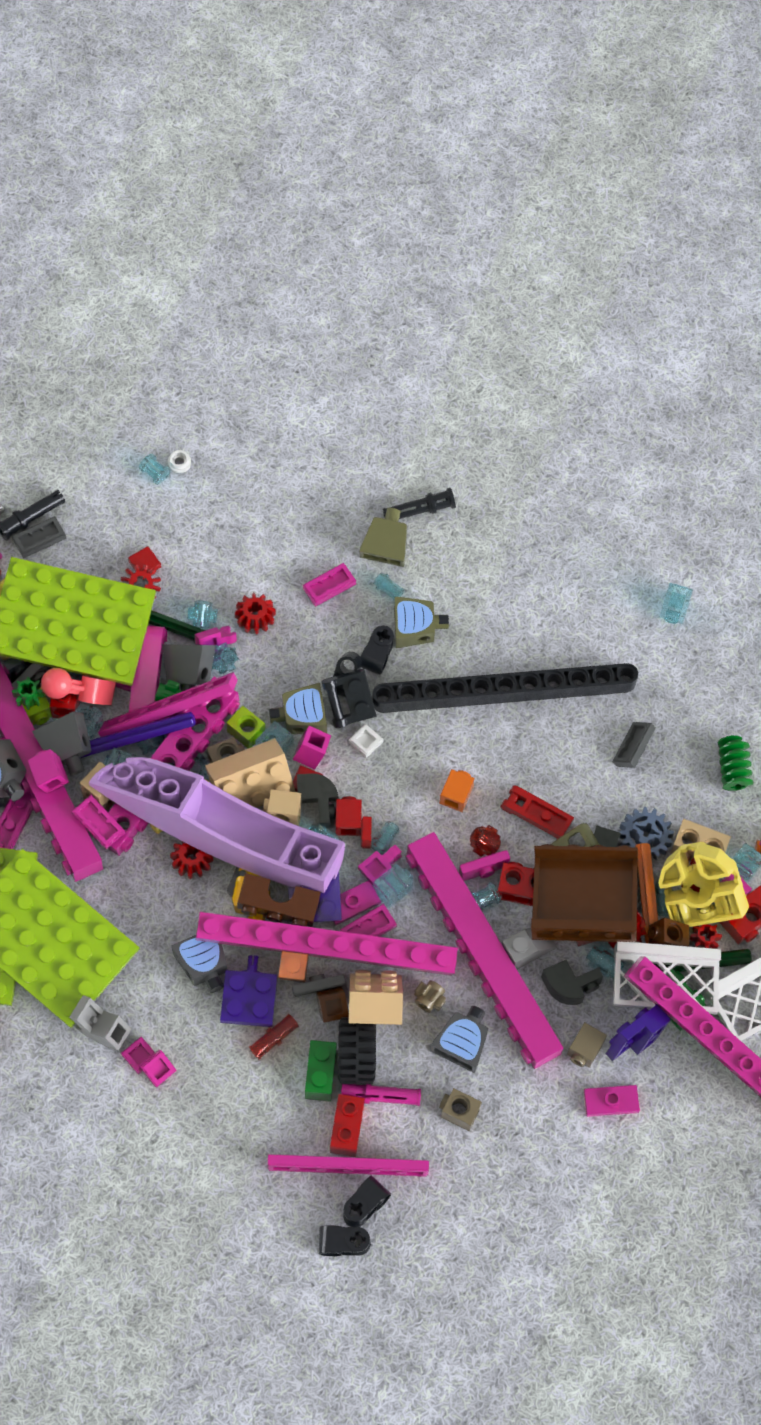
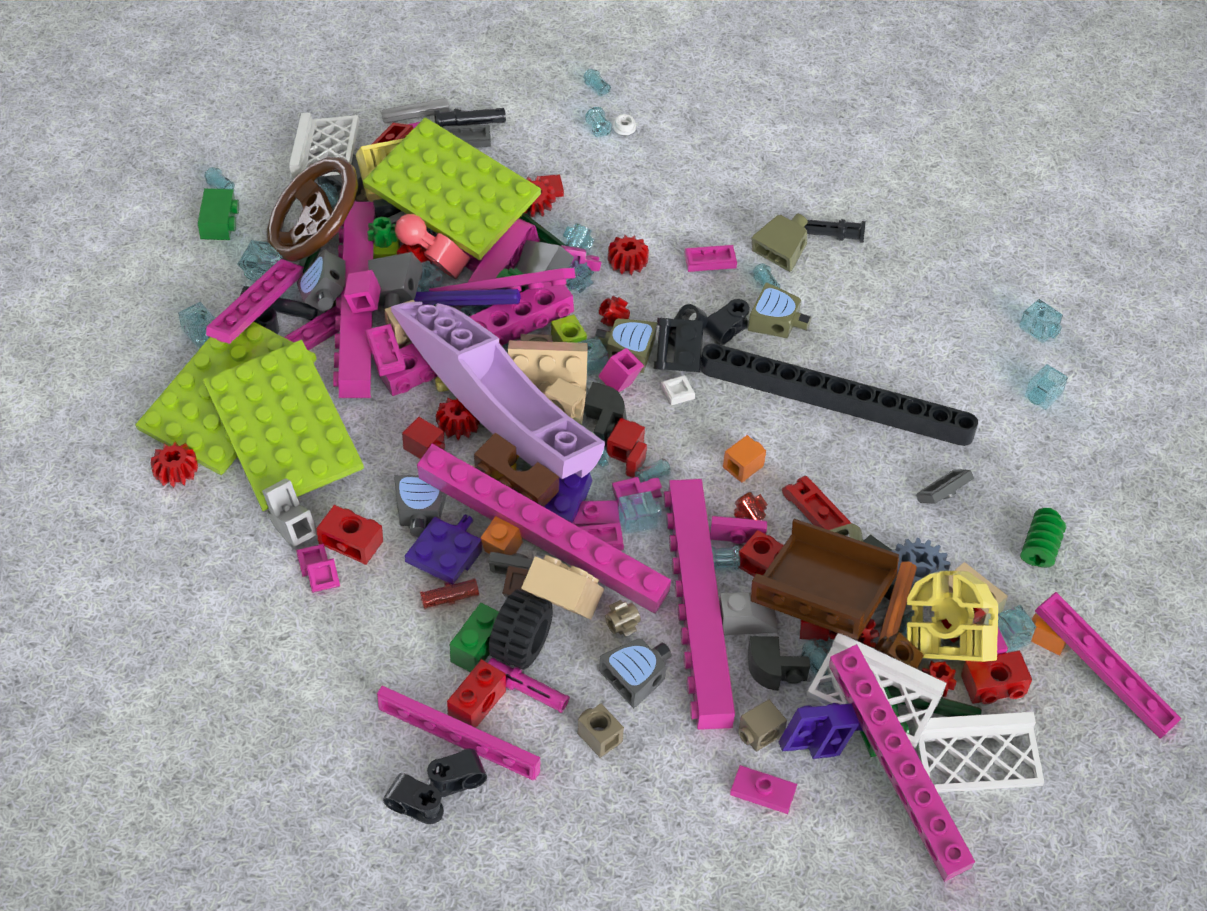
camera: 25 degrees right, 15 degrees down
(129, 420) = (593, 78): none -> clear light blue pin
(173, 1026) = (350, 534): none -> red brick
(174, 894) = (420, 436): none -> red brick
(274, 683) = (613, 309): none -> red gear
(645, 525) = (1041, 321): none -> clear light blue brick

